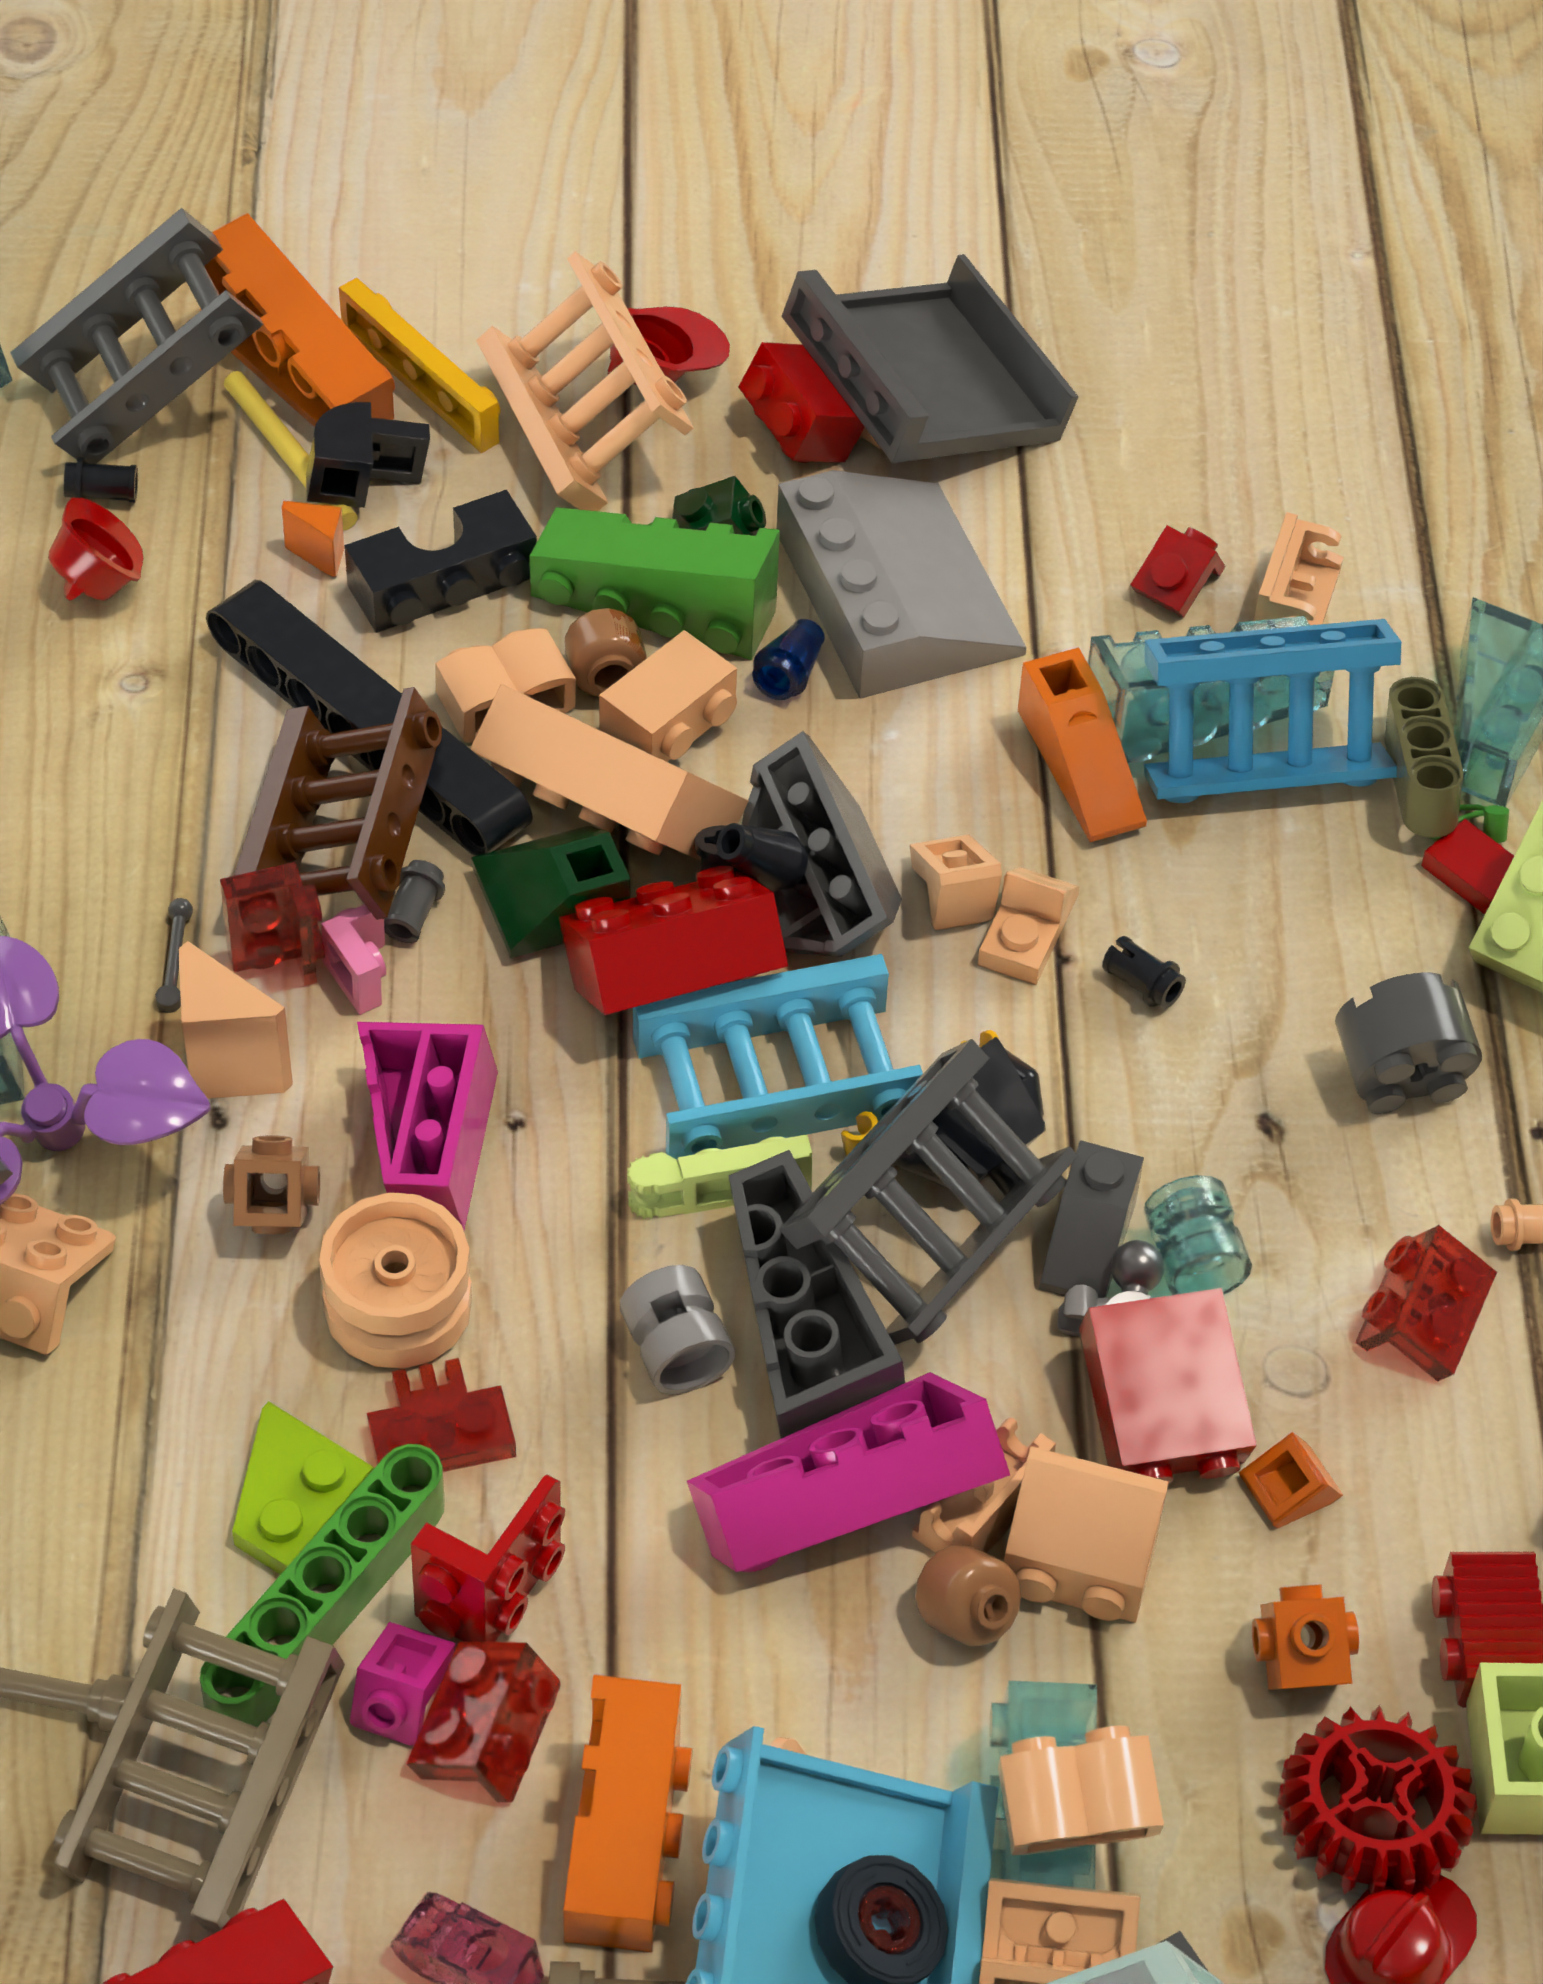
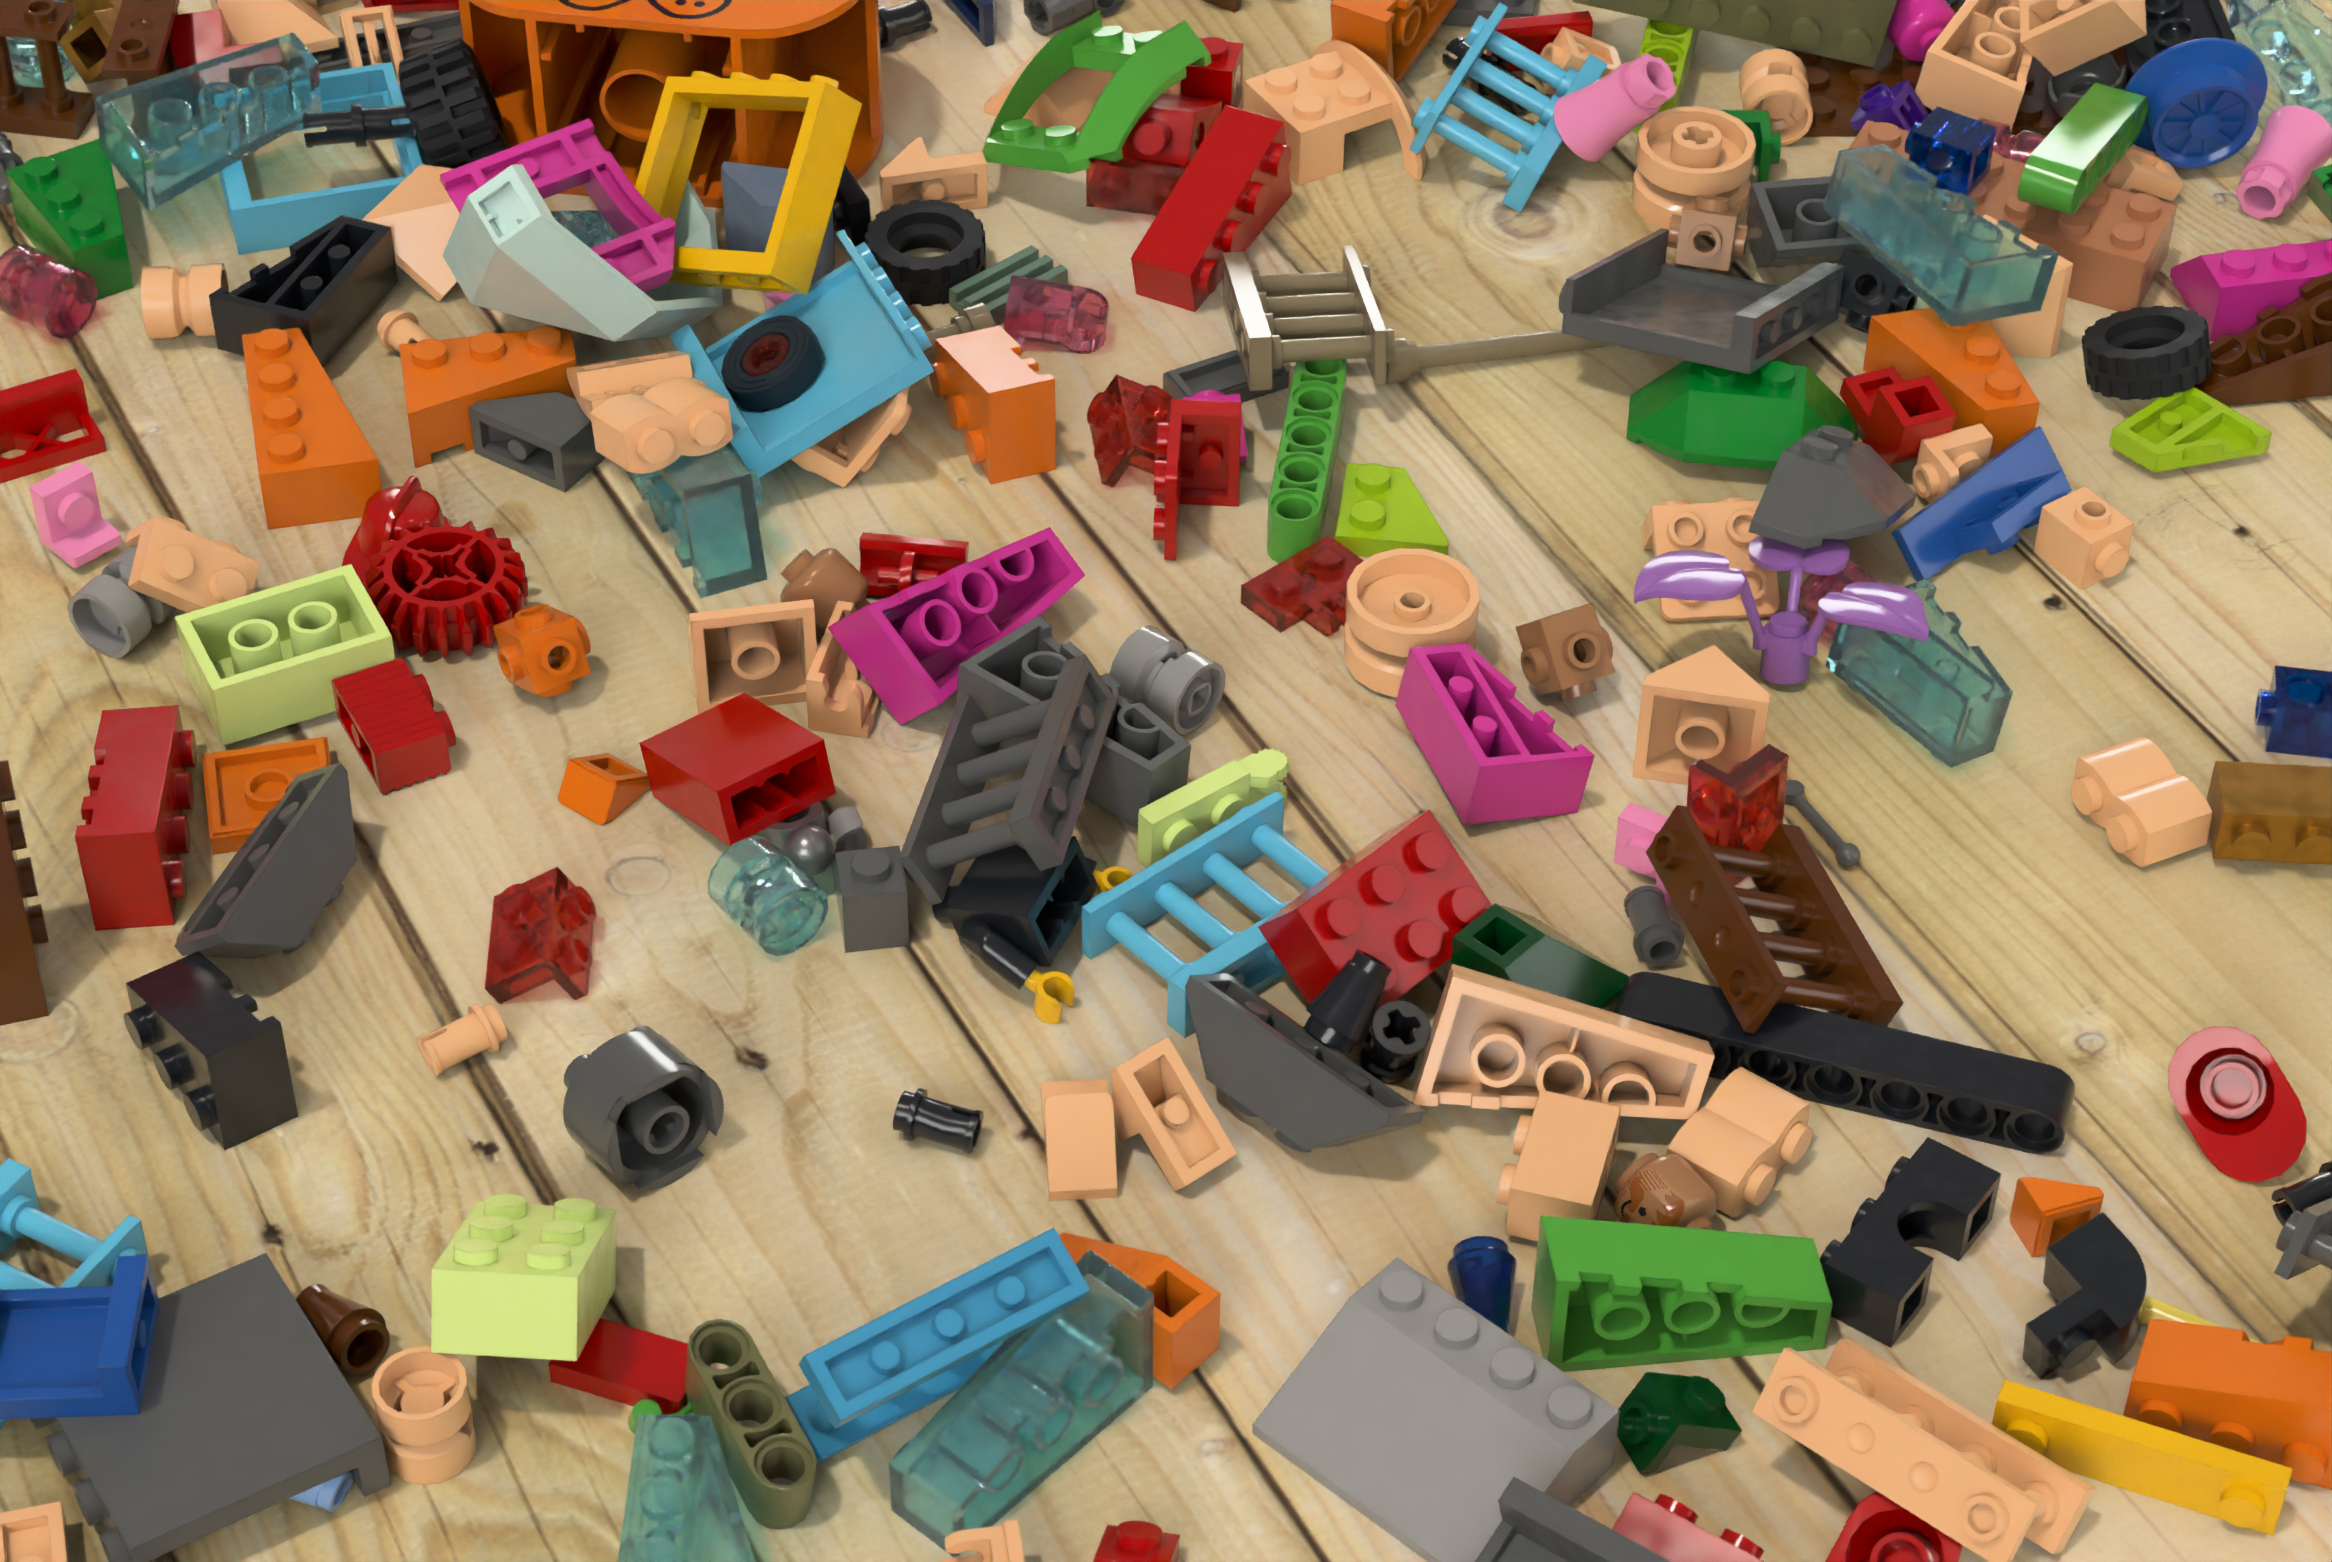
camera: 155 degrees right, 10 degrees down
(345, 1784) = (1221, 374): none -> dark grey tile
(871, 1632) = (902, 561): none -> red hips

